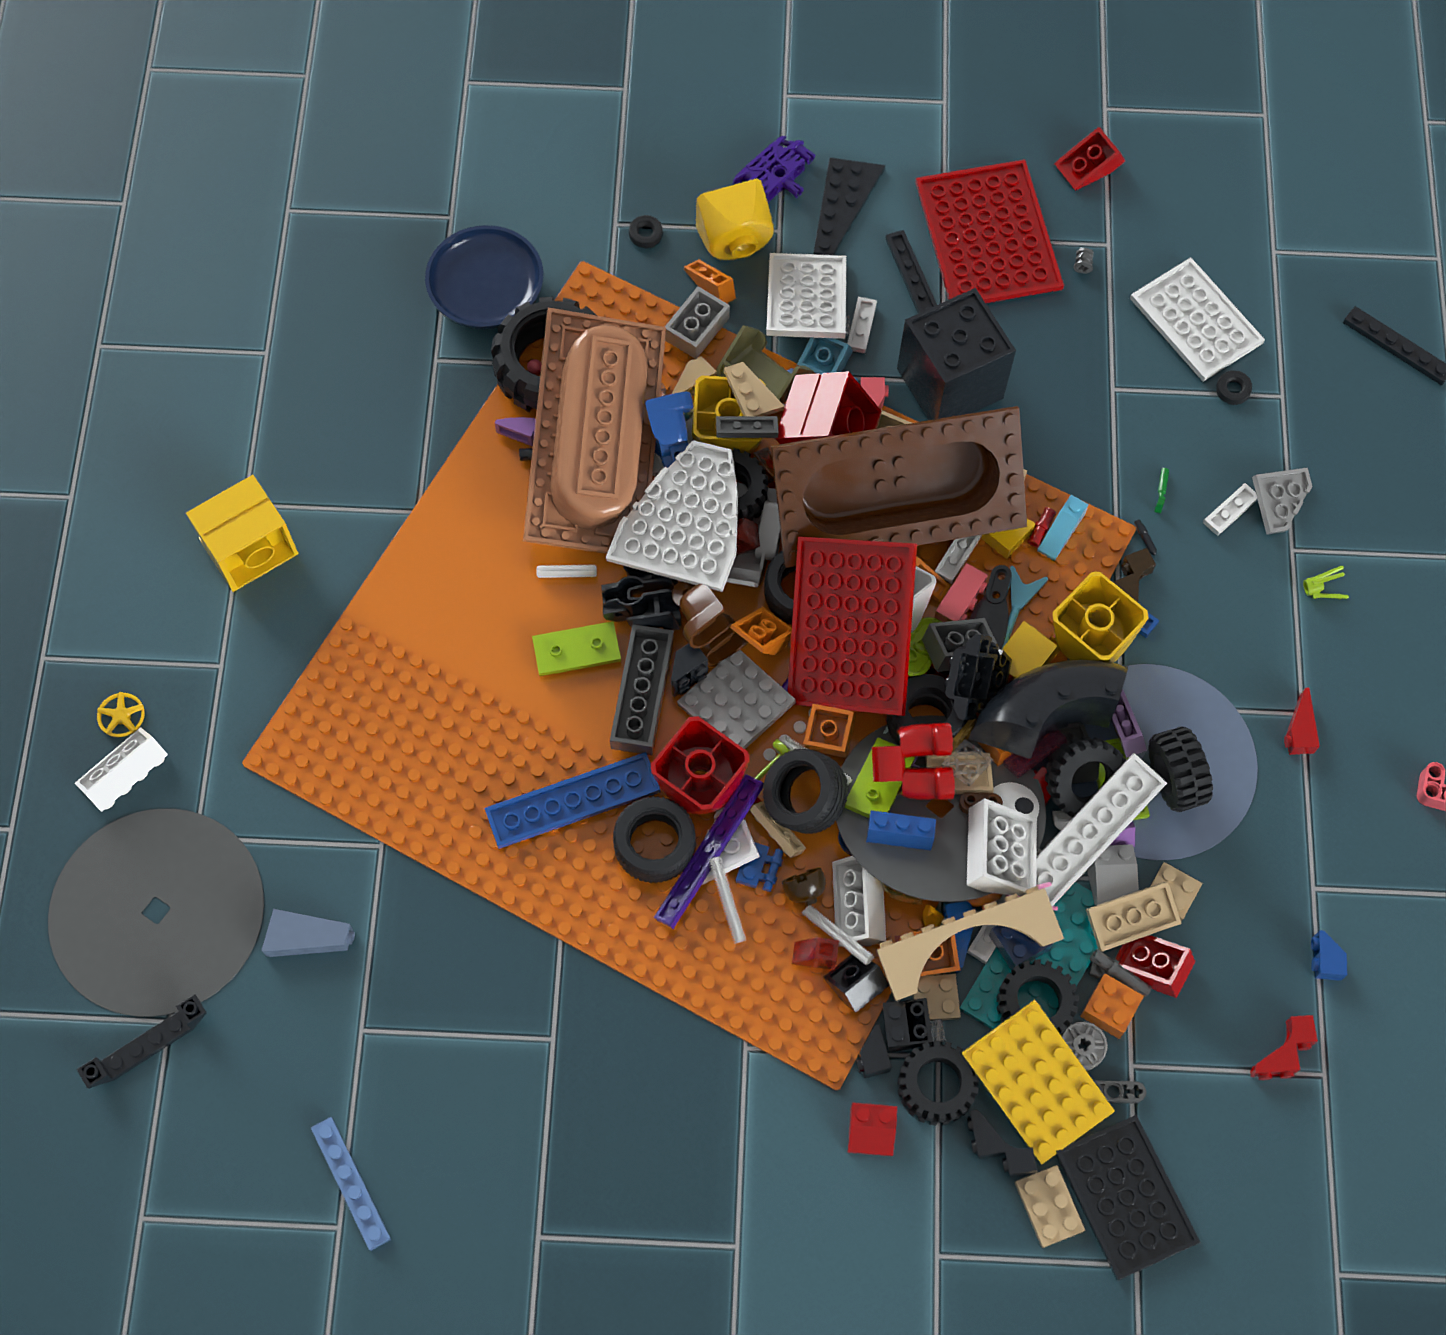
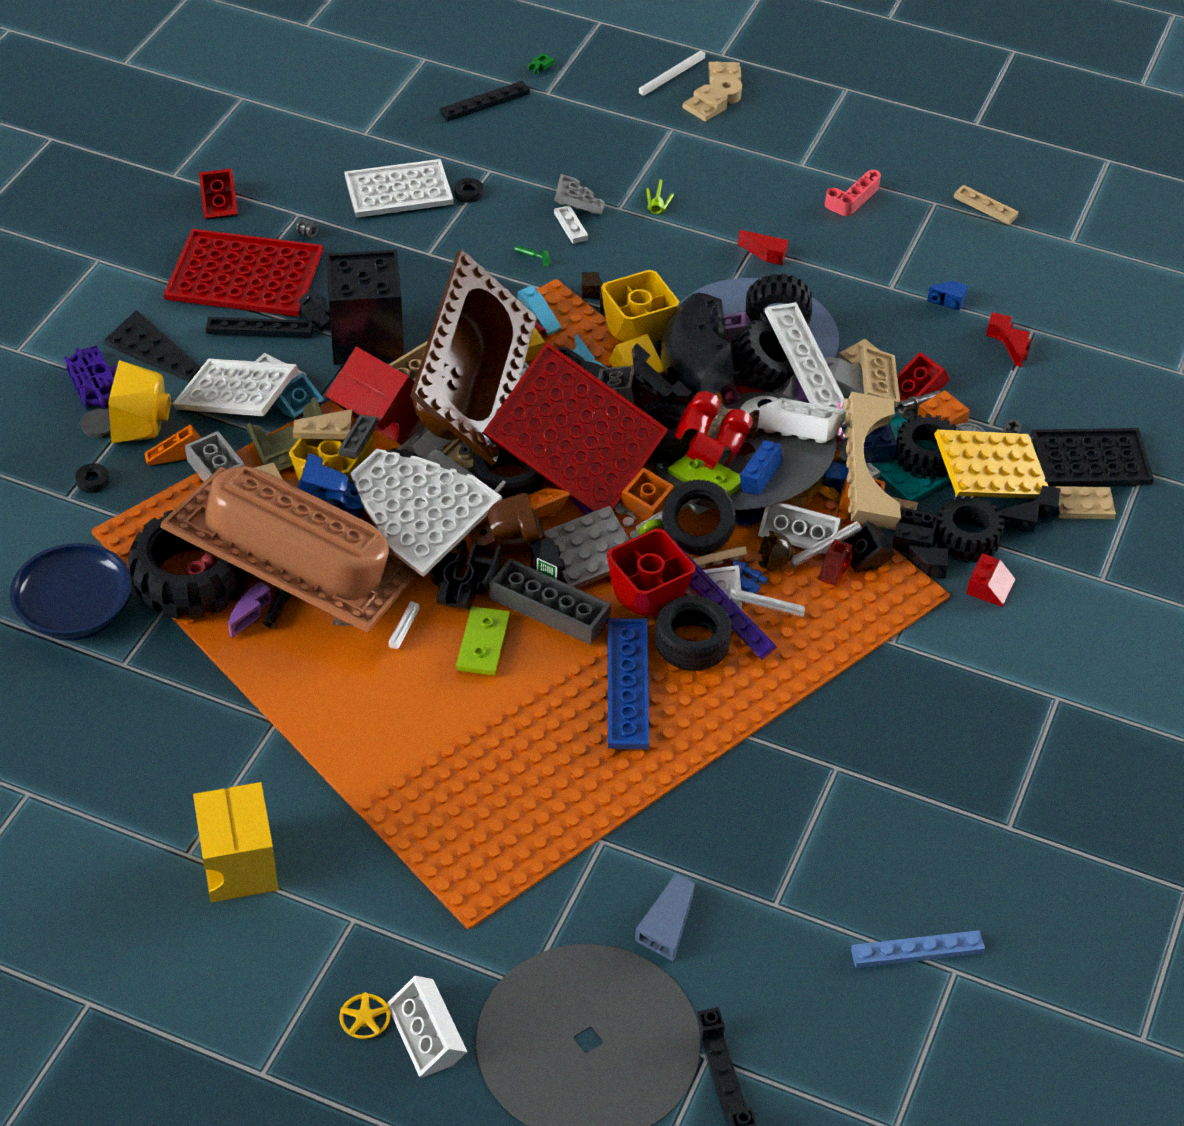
camera: 70 degrees left, 20 degrees down
(1143, 532) = (567, 276): black piece -> none

